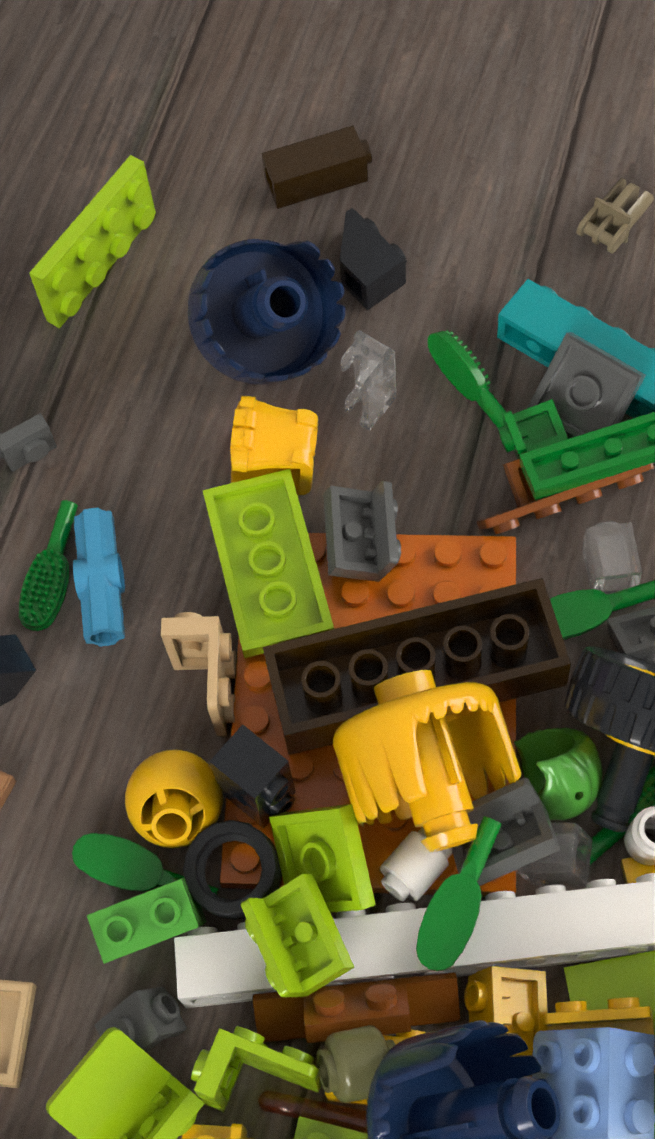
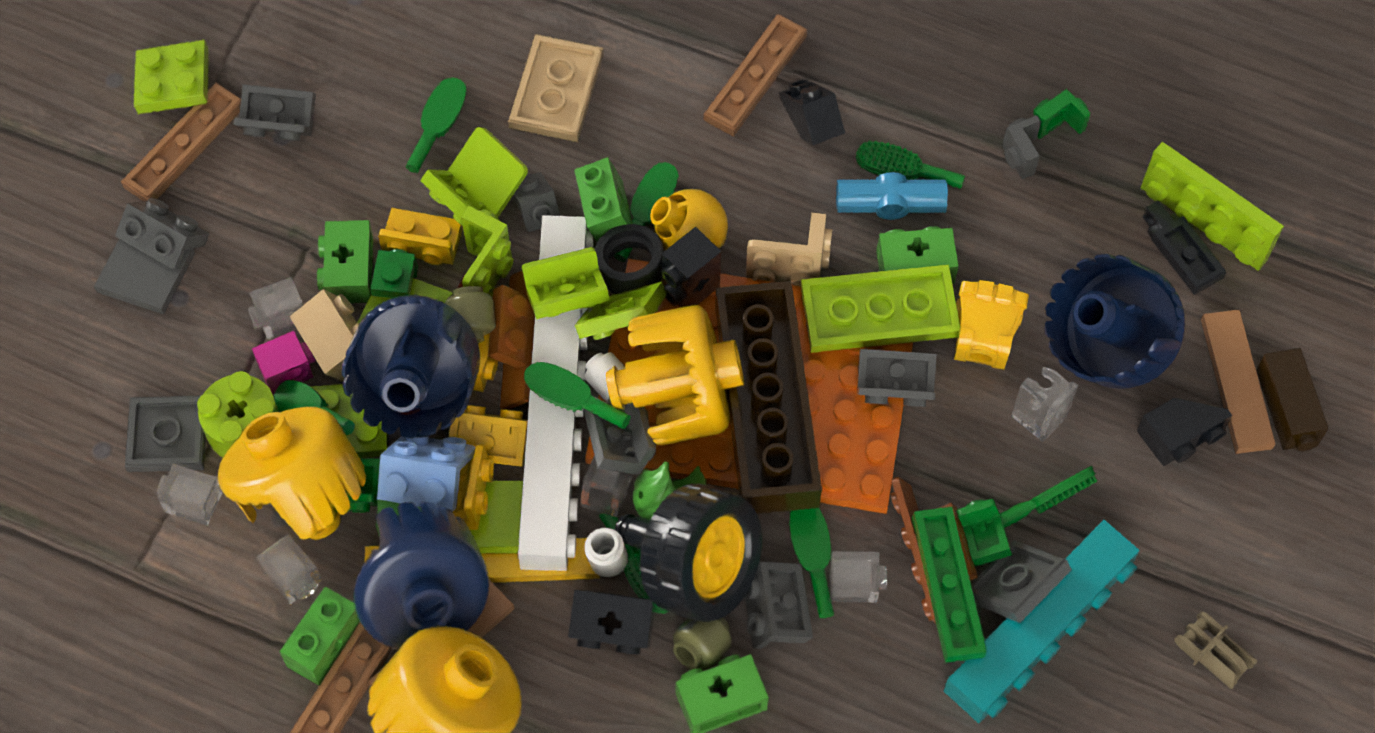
camera: 90 degrees right, 0 degrees up
(140, 276) = (1183, 248): none -> black hinge
(188, 561) = (932, 246): none -> bright green brick
(299, 217) = (1238, 381): none -> medium nougat tile

